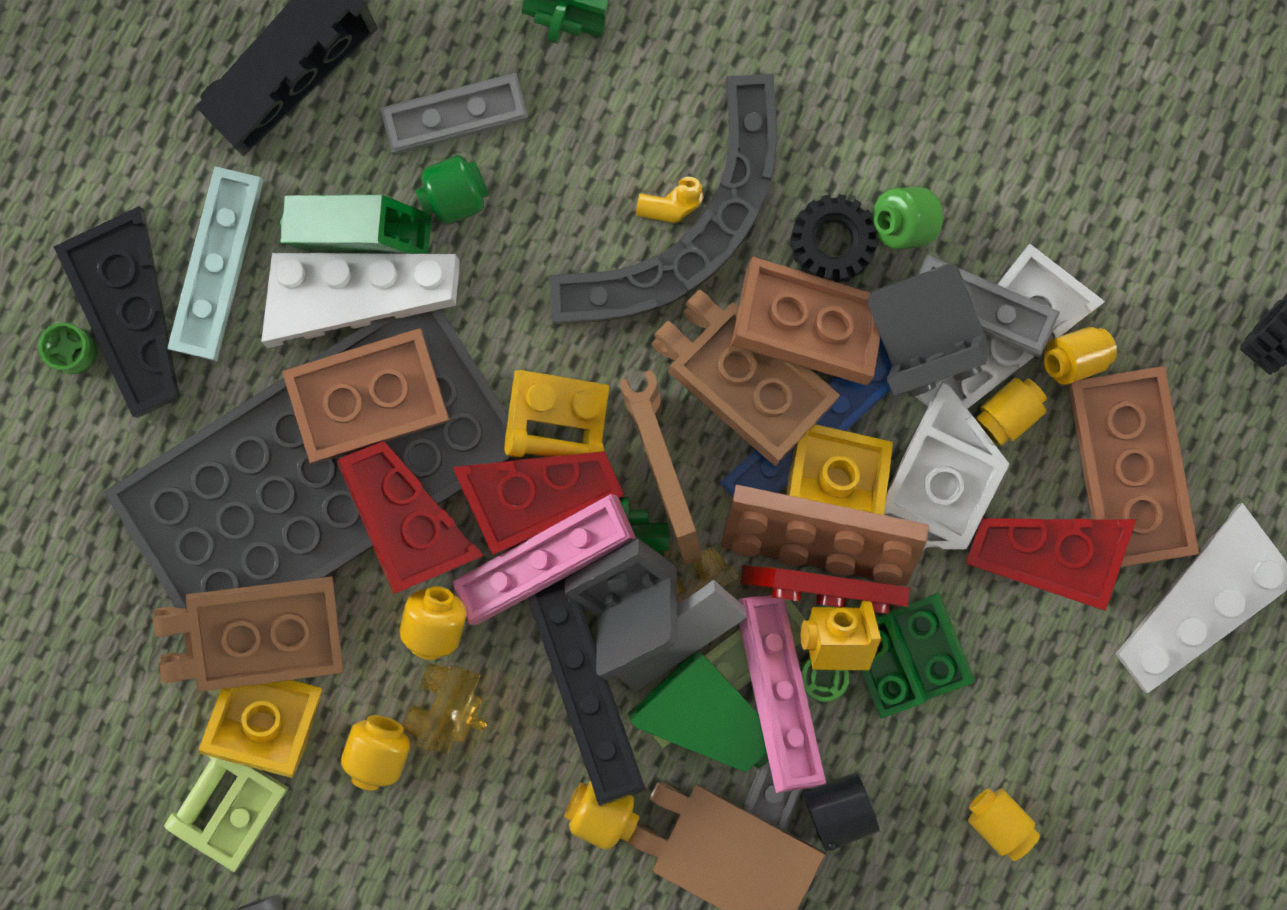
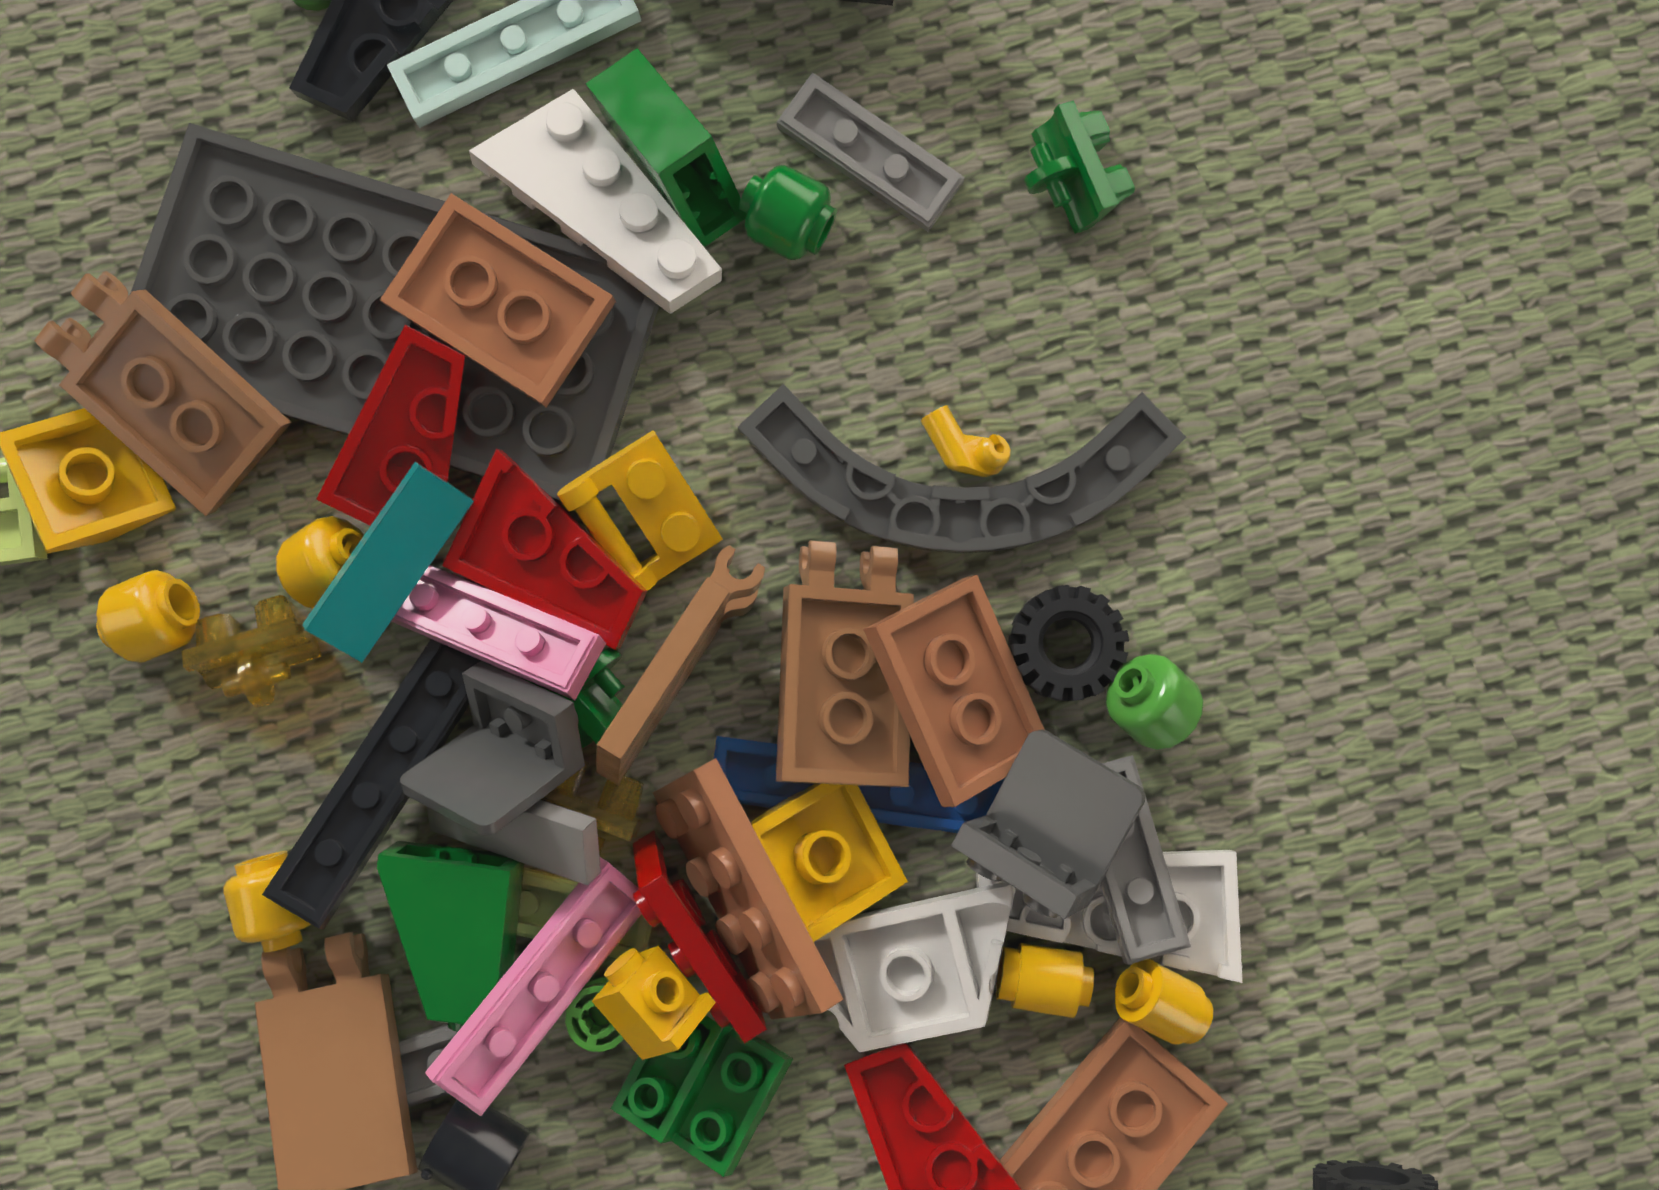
camera: 50 degrees right, 0 degrees up
(466, 581) = (387, 562): none -> teal tile

